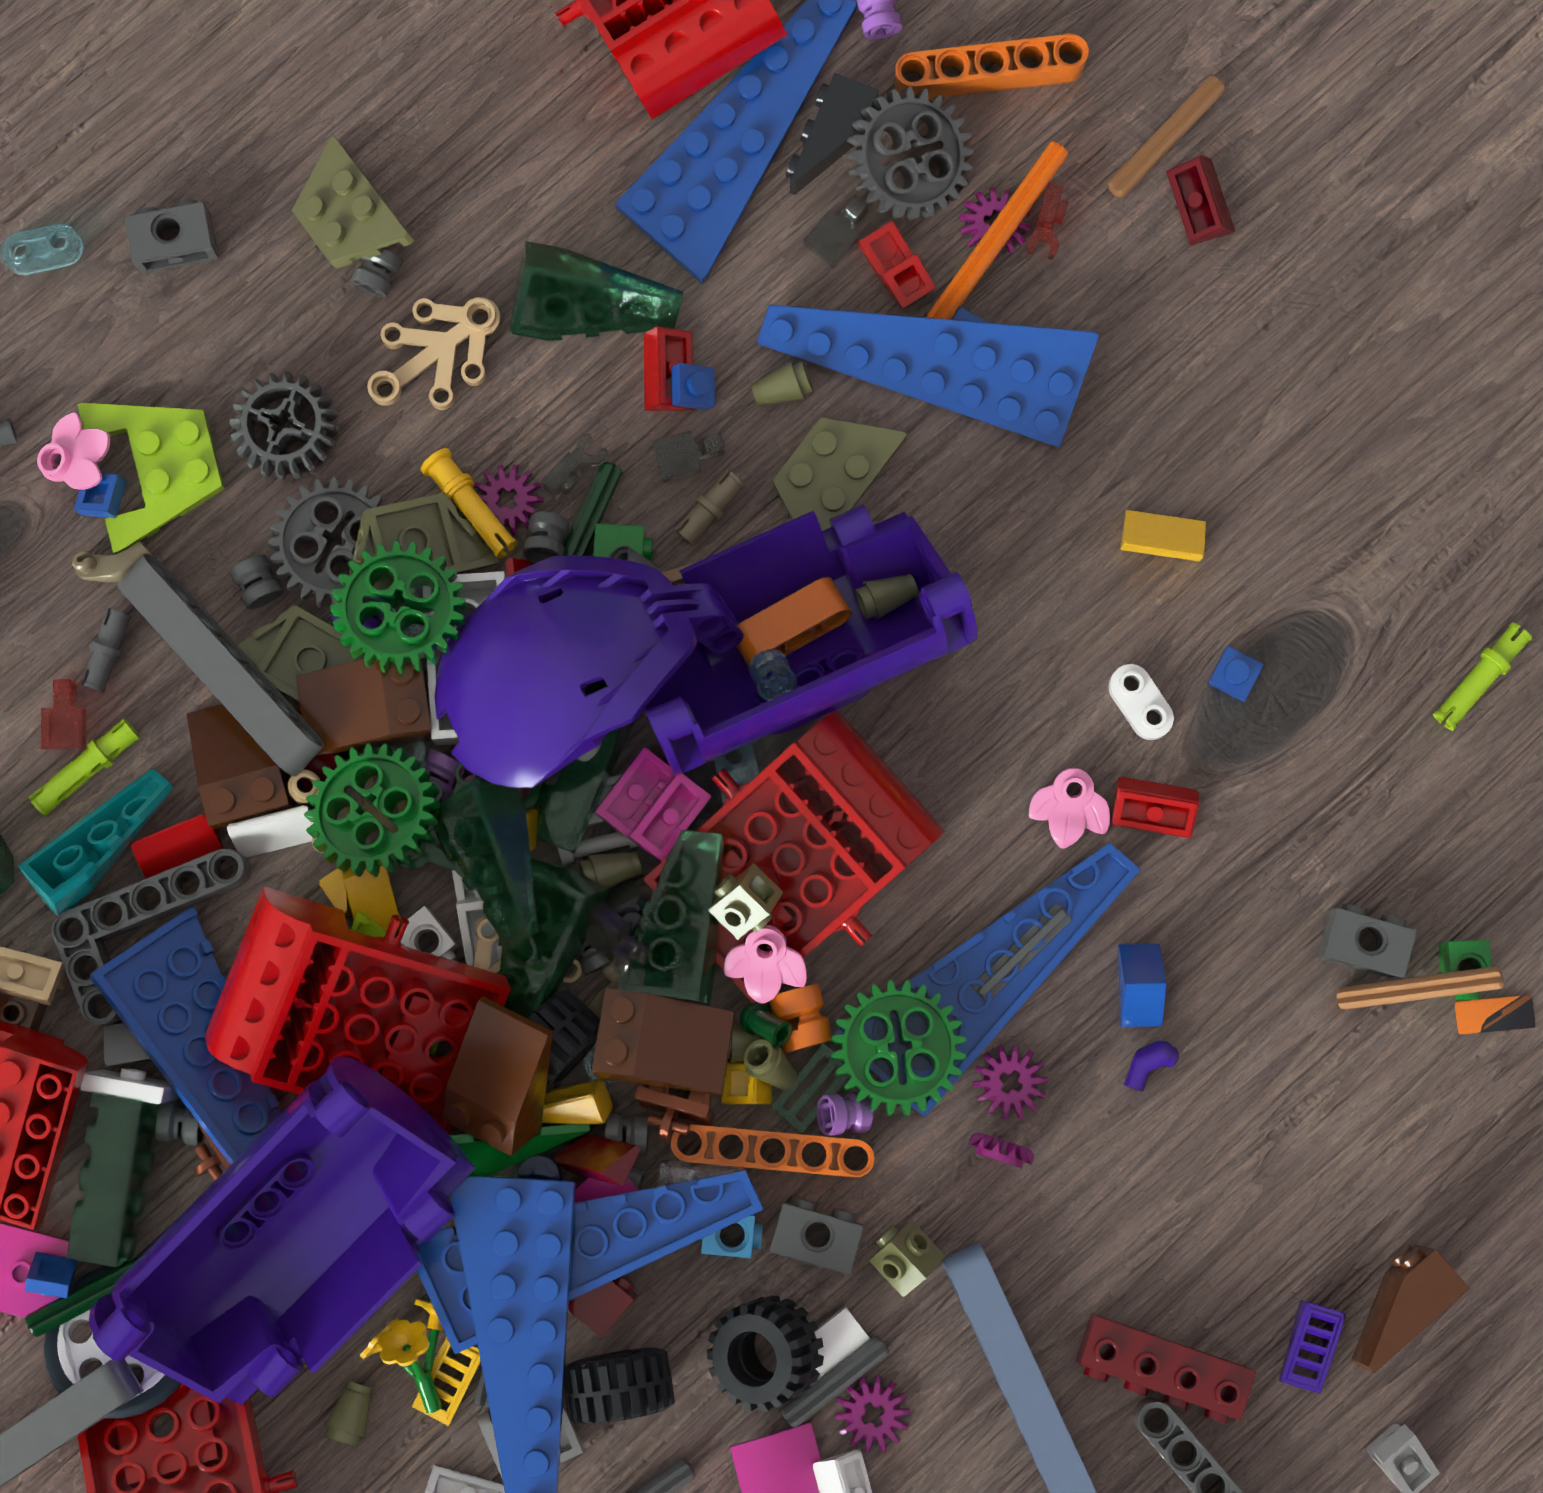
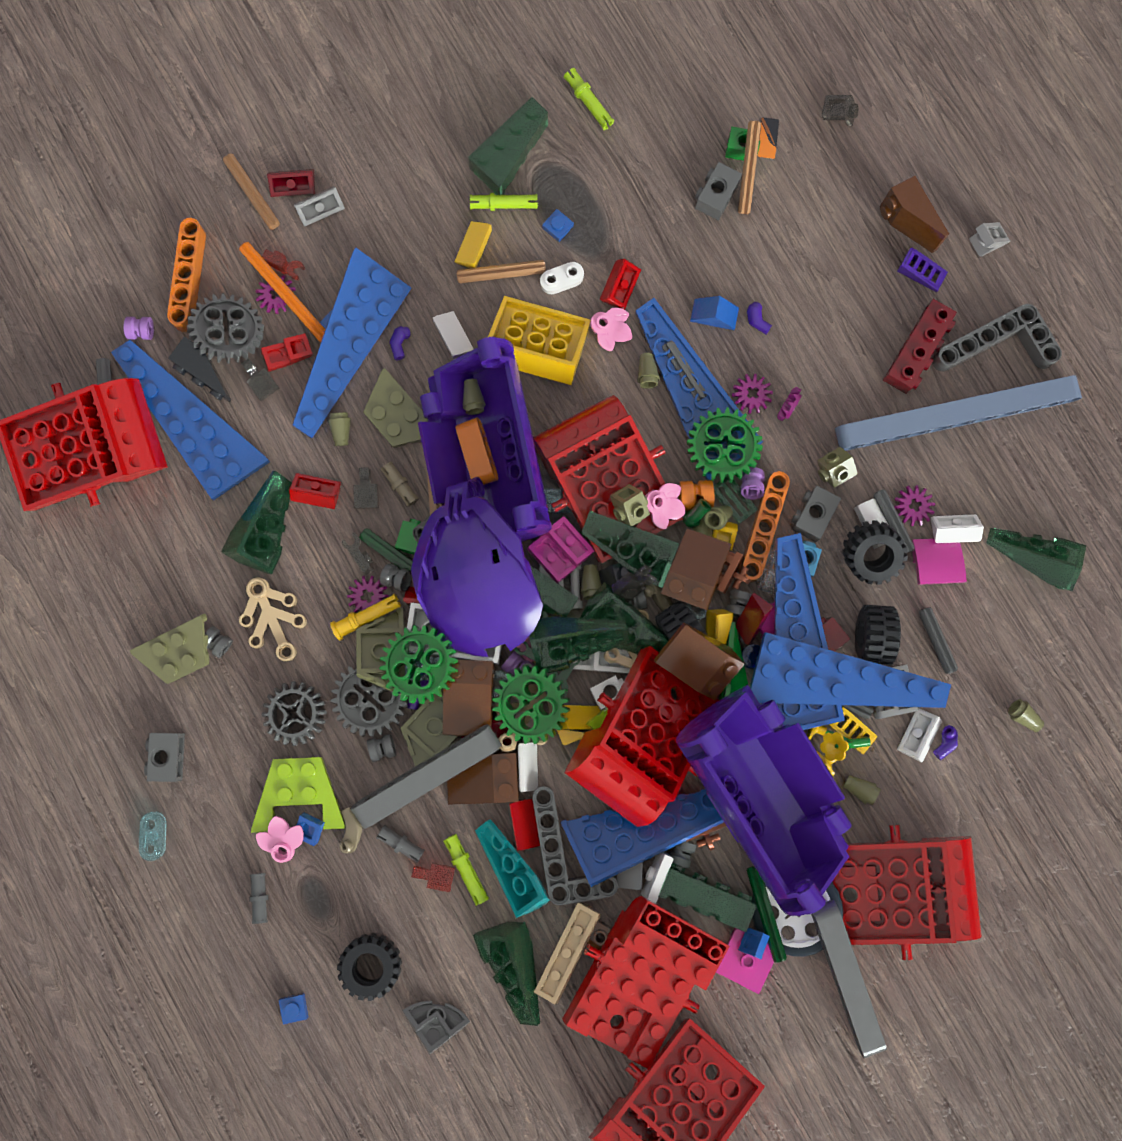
camera: 80 degrees left, 0 degrees up
(693, 386) = (328, 478): blue plate -> none
(782, 676) = (504, 466): clear light blue wheel -> none
(960, 444) = (396, 341): none -> dark purple arm
(992, 537) = (452, 334): none -> white slope
(1004, 888) = (647, 372): none -> olive cone
(1019, 685) = (543, 338): none -> yellow slope
(1126, 594) = (501, 271): none -> medium nougat axle
(1169, 256) = (319, 206): none -> light grey slope
(1253, 568) = (503, 201): none -> lime pin
(1355, 556) = (508, 146): none -> clear green wedge

